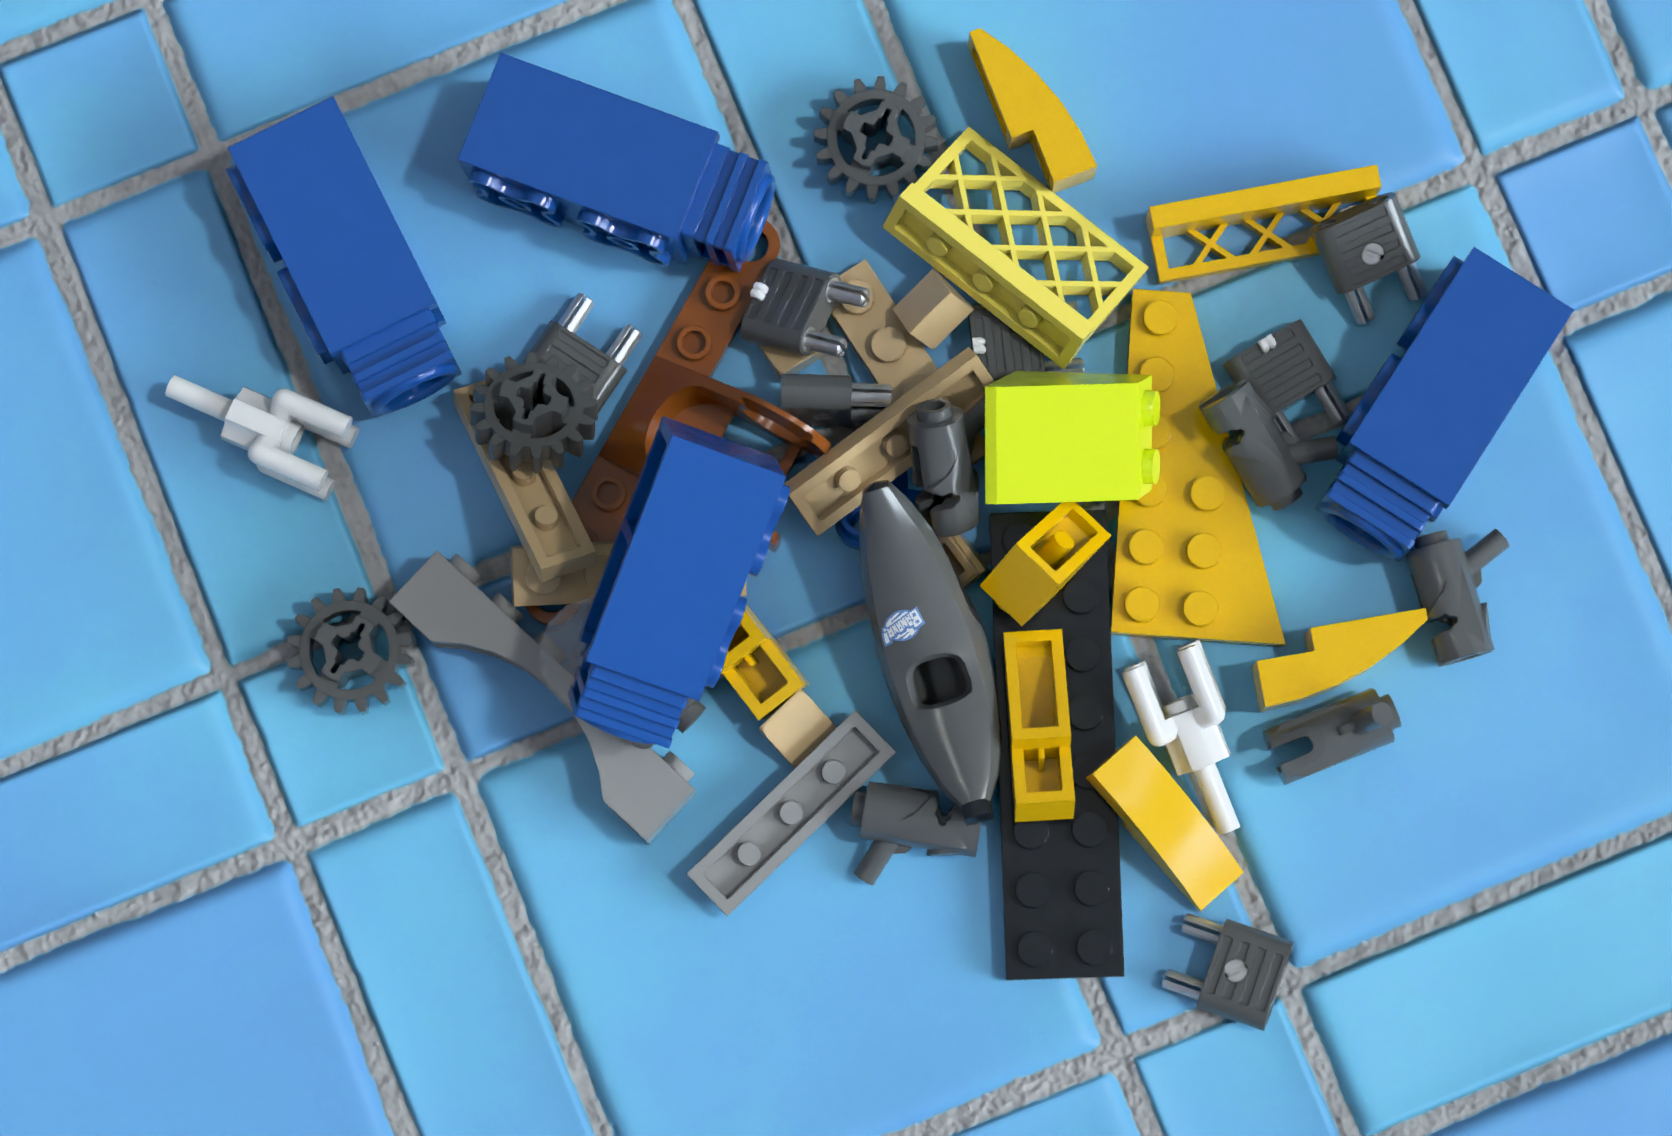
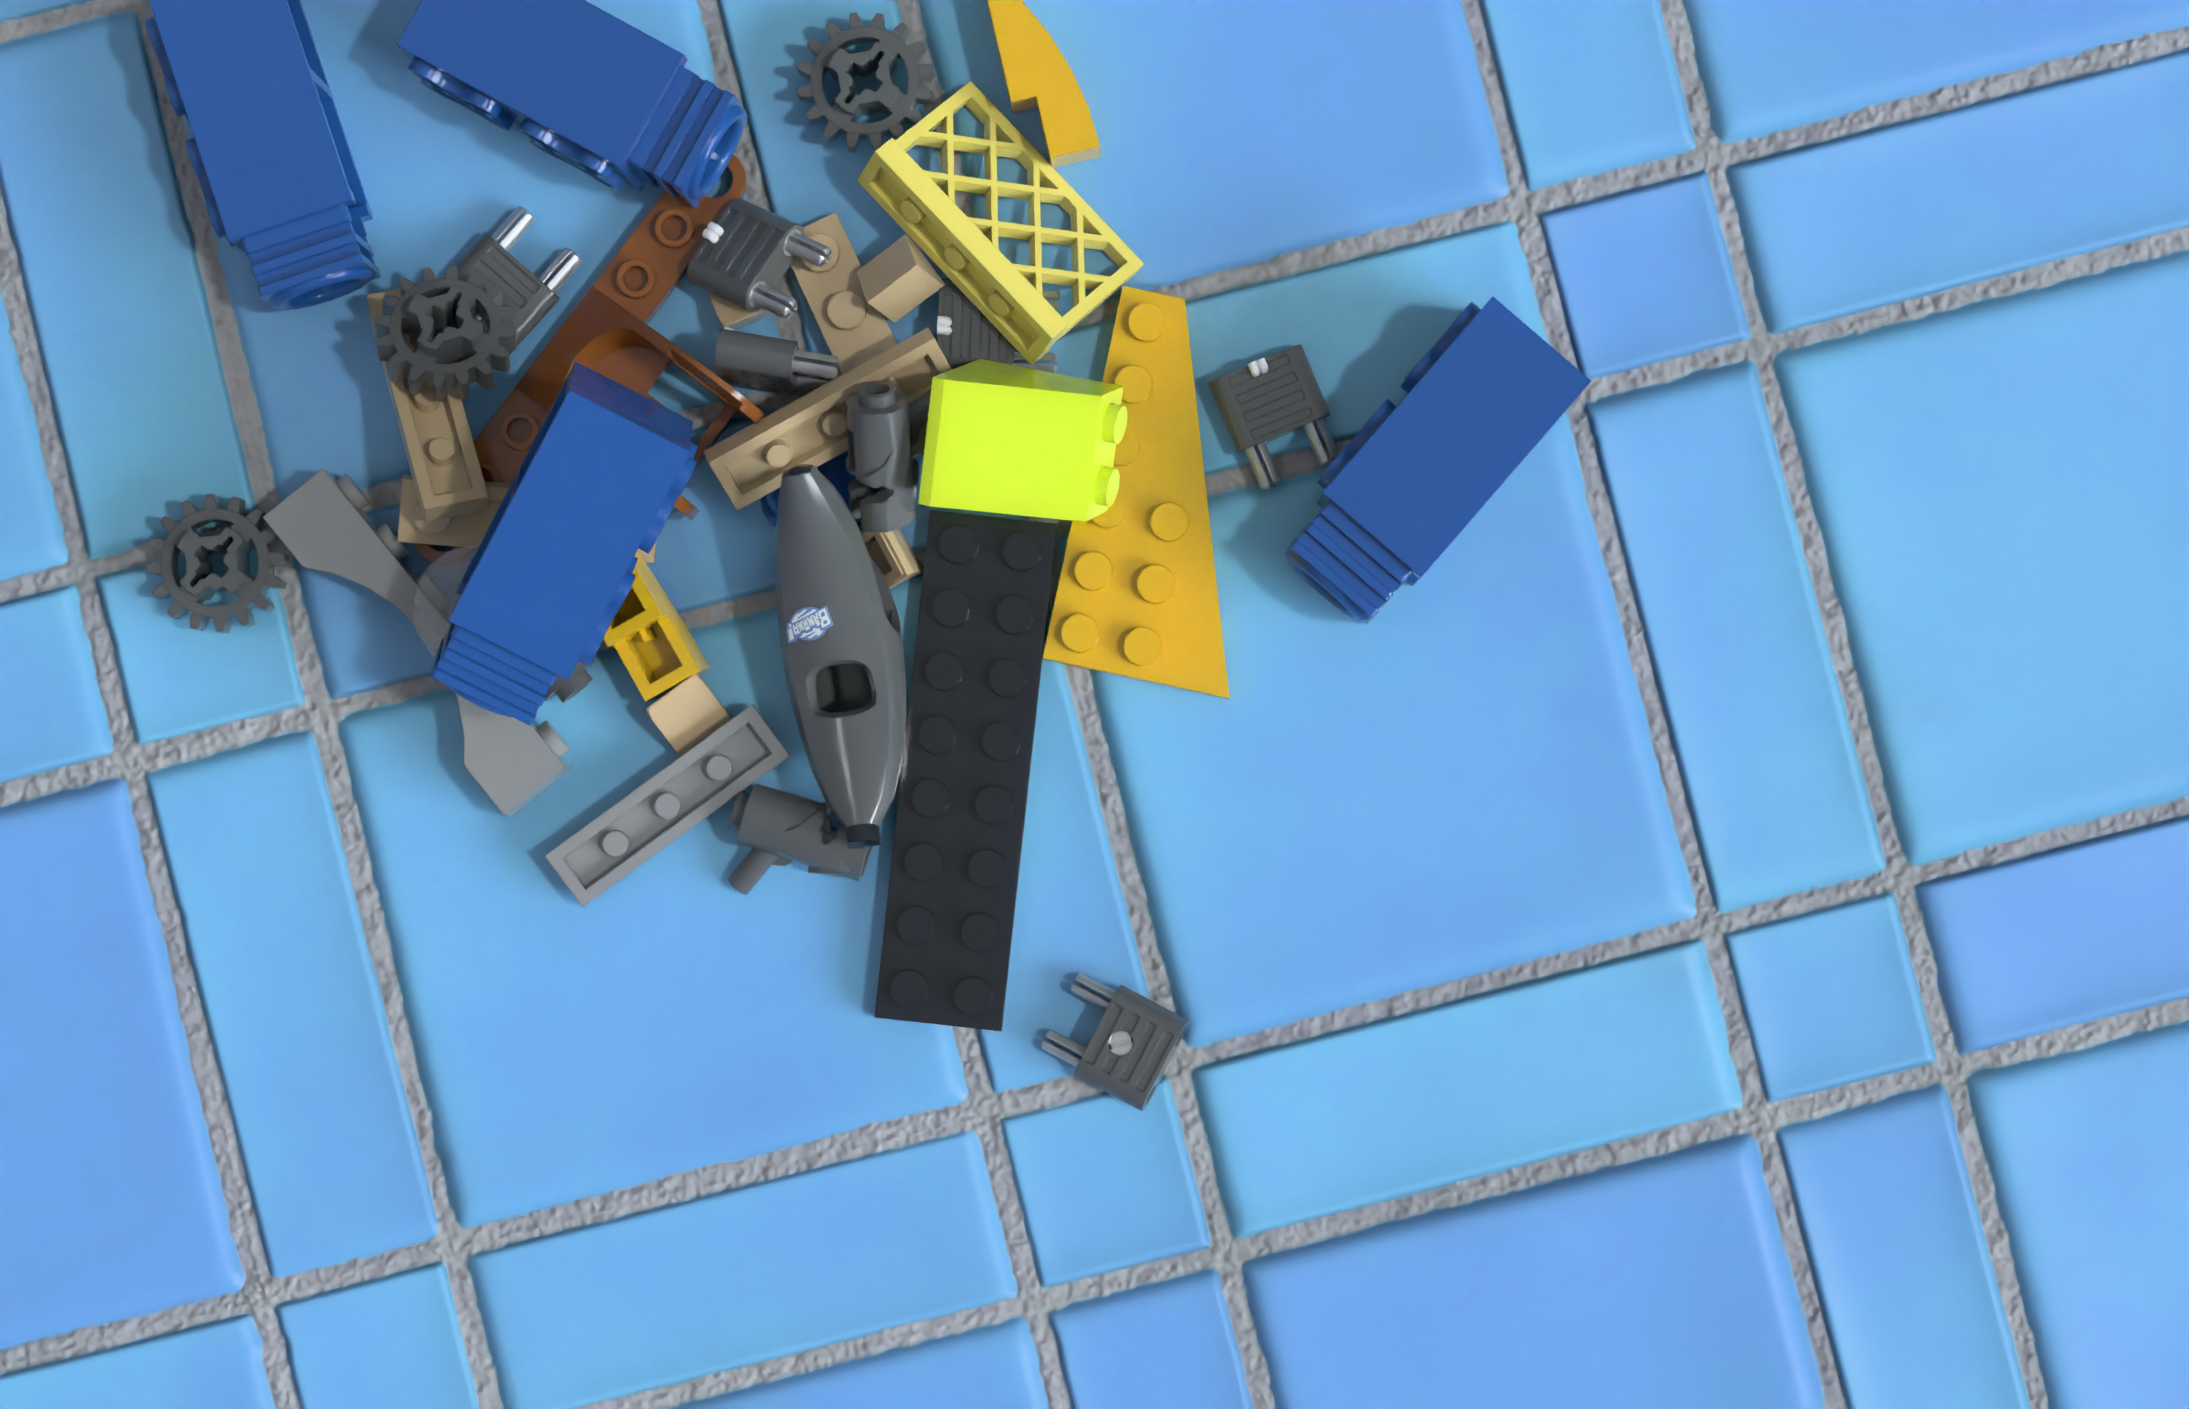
camera: 15 degrees right, 5 degrees up
(272, 429) = (162, 310): white plant -> none
(1038, 725) = (945, 750): yellow slope -> none
(1044, 561) = (977, 573): yellow slope -> none
(1165, 822) = (1069, 874): yellow slope -> none
(1188, 727) = (1108, 770): white plant -> none
(1246, 208) = (1279, 211): yellow fence -> none
(1258, 451) = (1229, 483): dark grey piece -> none
(1332, 657) = (1279, 720): yellow slope -> none
(1336, 733) = (1269, 802): dark grey piece -> none
(1365, 246) = (1384, 274): dark grey piece -> none
(1447, 586) = (1413, 663): dark grey piece -> none

